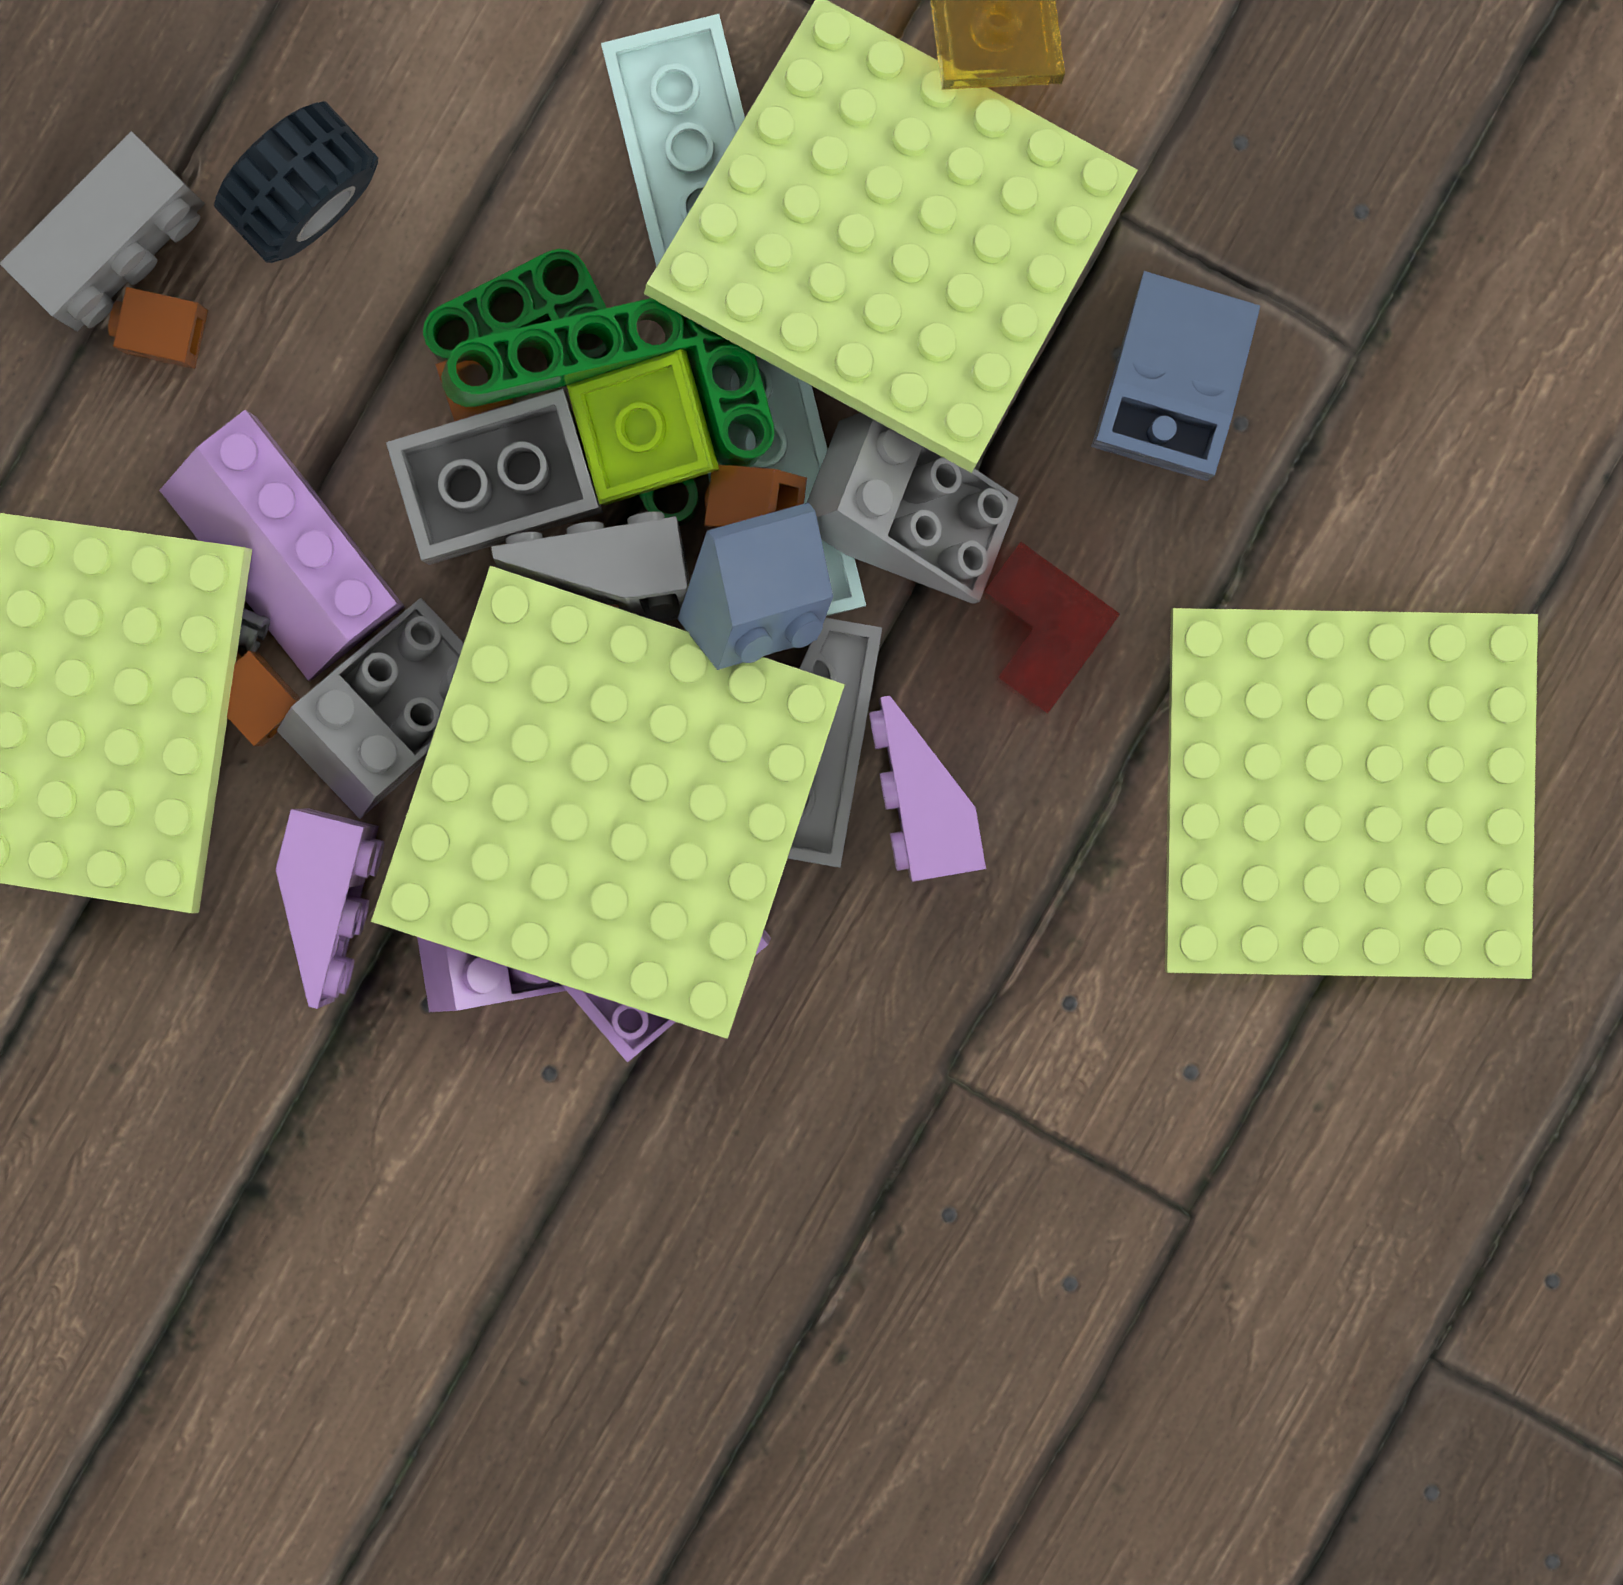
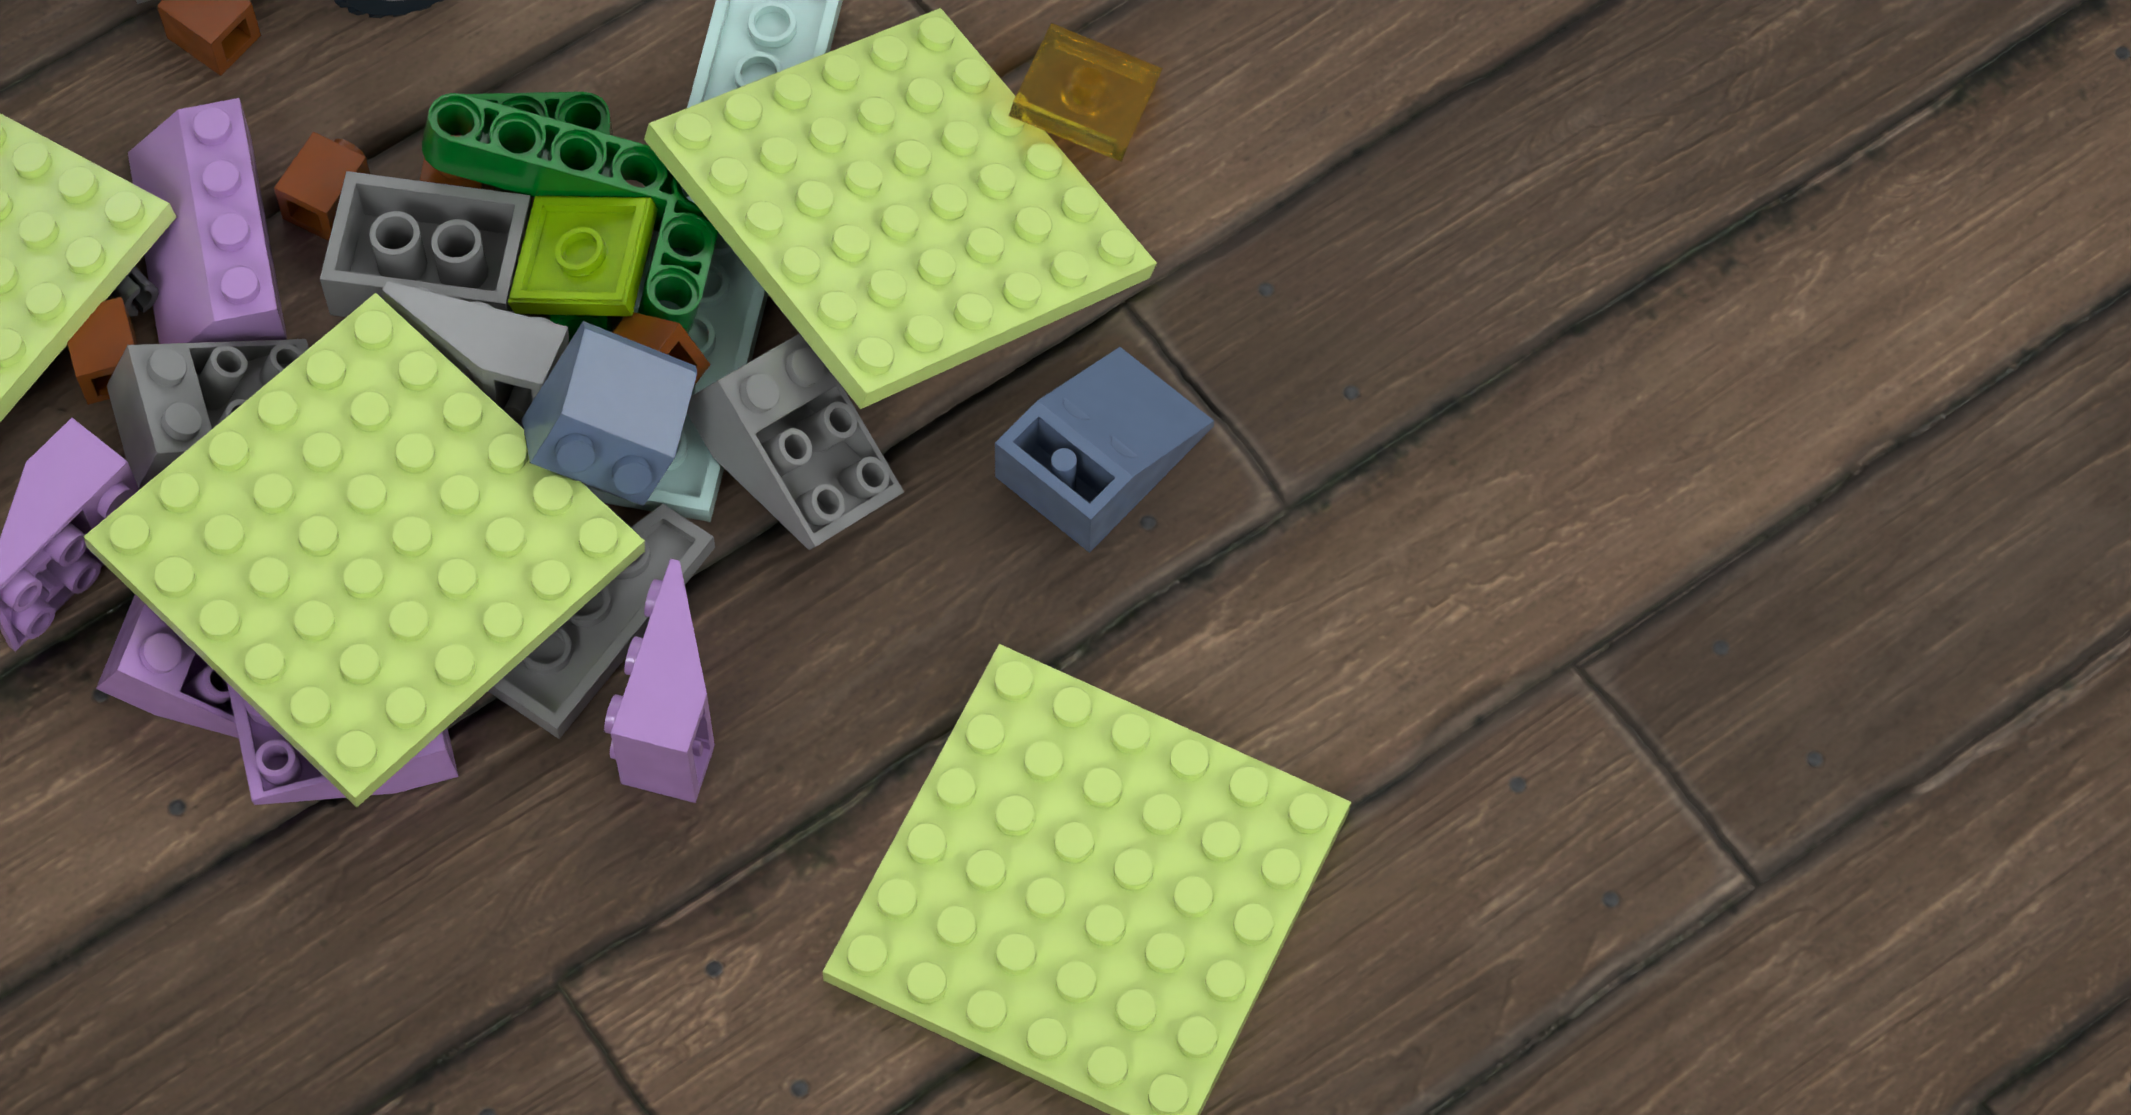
camera: 20 degrees right, 25 degrees down
(357, 445) = (314, 182): none -> dark orange brick
(1062, 621) = (880, 606): clear red brick -> none

